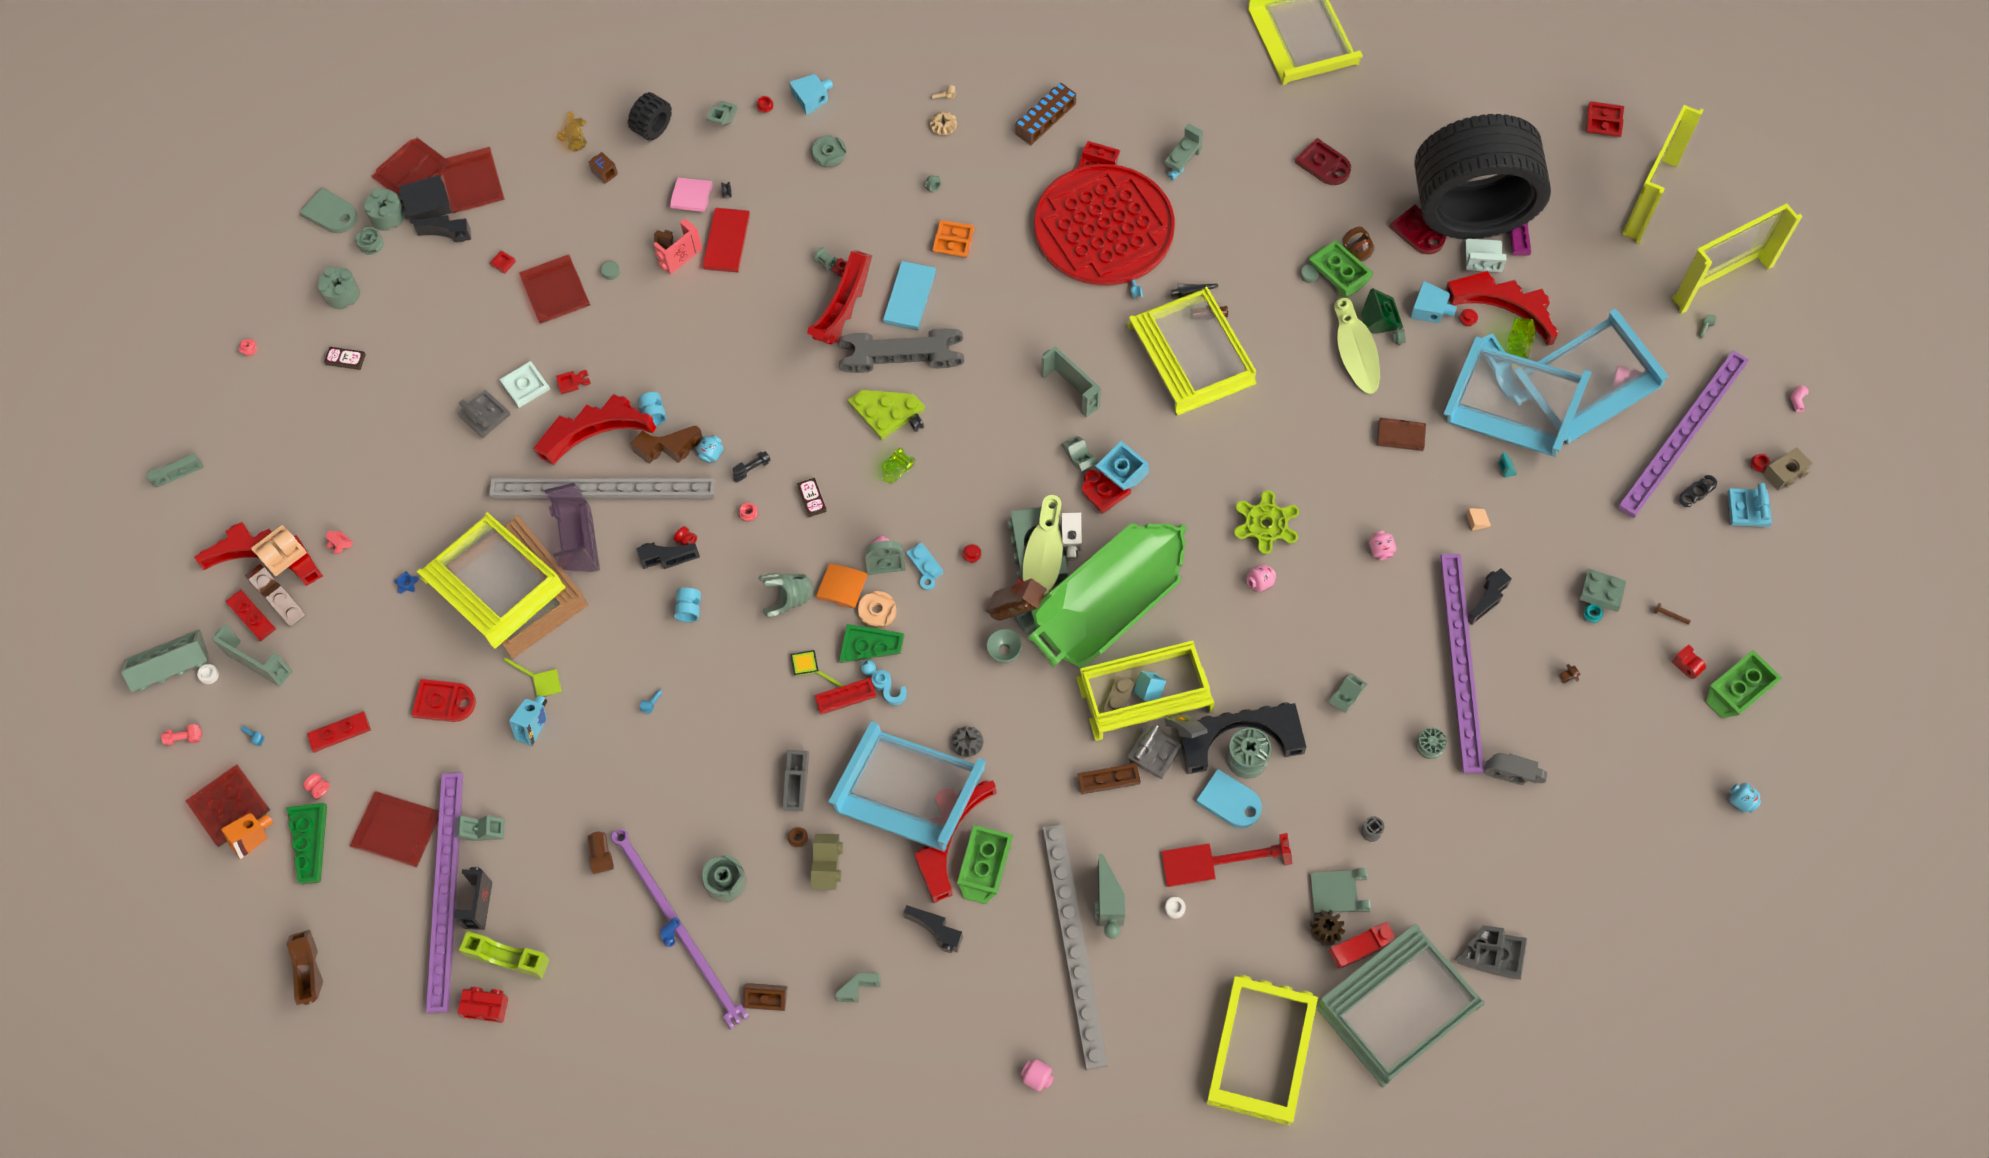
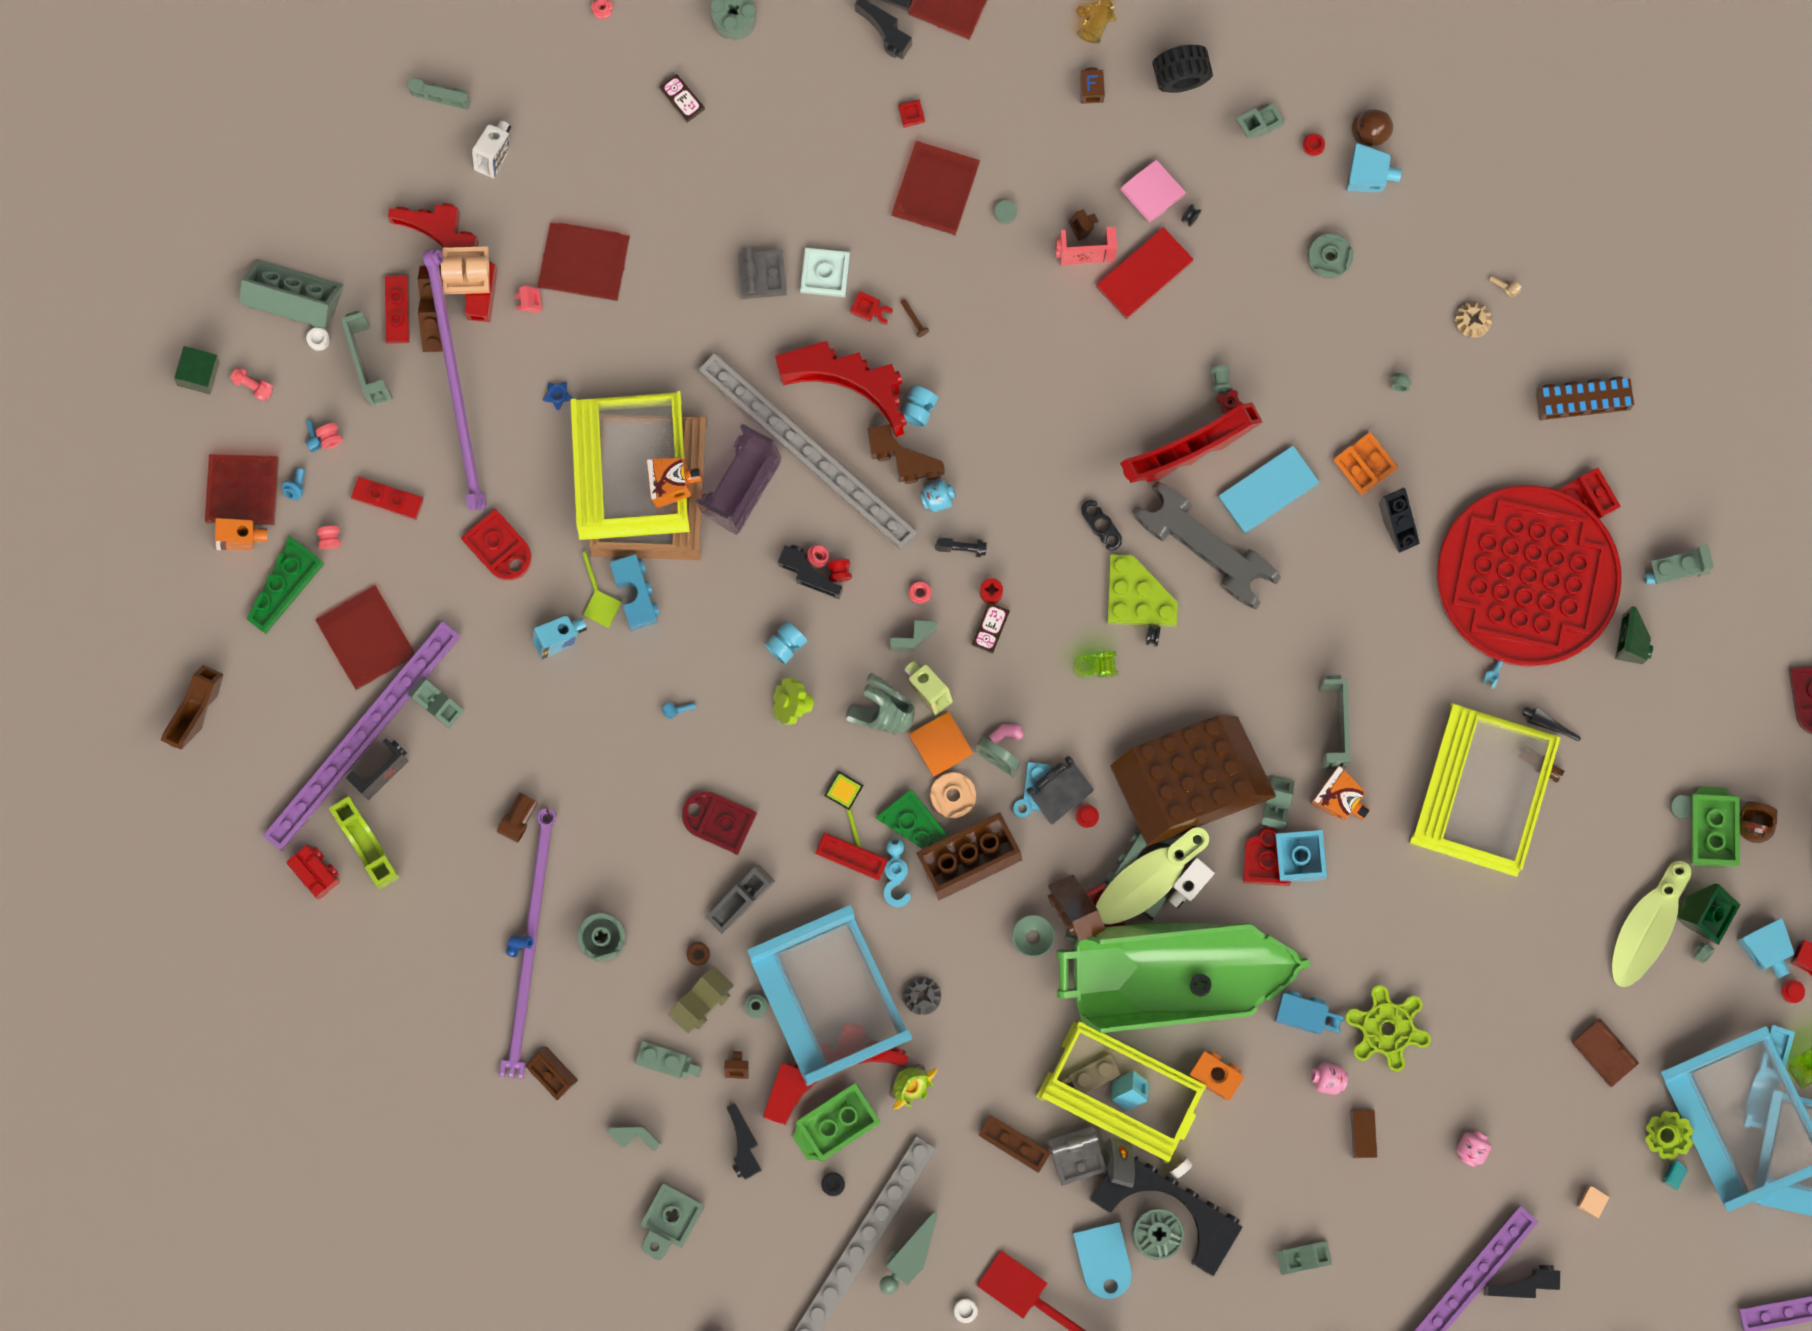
camera: 40 degrees right, 15 degrees up
(133, 754) = (196, 370): none -> dark green head
(236, 466) = (491, 149): none -> white torso
(249, 555) = (475, 499): none -> medium lavender hinge
(264, 724) = (329, 436): none -> coral wheel
(265, 774) = (295, 487): none -> dark azure plate
(357, 494) = (583, 261): none -> clear red piece
(526, 559) = (671, 480): none -> torso
(547, 645) = (641, 611): none -> dark azure arch
(617, 369) = (922, 331): none -> reddish brown pin
(663, 539) = (822, 554): none -> coral plate
(722, 634) = (791, 701): none -> lime plant
(739, 746) = (719, 822): none -> dark red tile
(769, 530) = (922, 632): none -> sand green slope
(790, 479) = (990, 594): none -> red wheel
(792, 68) = (1373, 126): none -> reddish brown helmet
(805, 557) = (928, 687): none -> yellowish green torso
(820, 385) = (1110, 531): none -> black piece
(837, 921) = (666, 1061): none -> sand green hinge
(865, 842) = (756, 1013): none -> sand green plate
(887, 884) = (736, 1067): none -> reddish brown tile
(920, 632) = (969, 856): none -> reddish brown slope
(932, 1030) = (668, 1232): none -> sand green plate
(941, 551) = (1060, 790): none -> black piece
(1000, 248) = (1399, 519): none -> black slope
(1010, 797) = (911, 1084): none -> lime hair
(1013, 478) = (1191, 778): none -> reddish brown slope
(1017, 903) = (833, 1184): none -> black plate
(1113, 419) = (1341, 796): none -> torso
(1135, 594) = (1197, 991): none -> black bush
(1194, 207) = (1633, 638): none -> dark green slope
(1202, 625) = (1202, 1073): none -> orange brick
(1211, 554) = (1306, 1014): none -> dark azure brick
(1224, 704) = (1180, 1168): none -> white tile
(1311, 594) = (1363, 1134): none -> reddish brown slope
(1482, 445) = (1669, 1135): none -> lime plant

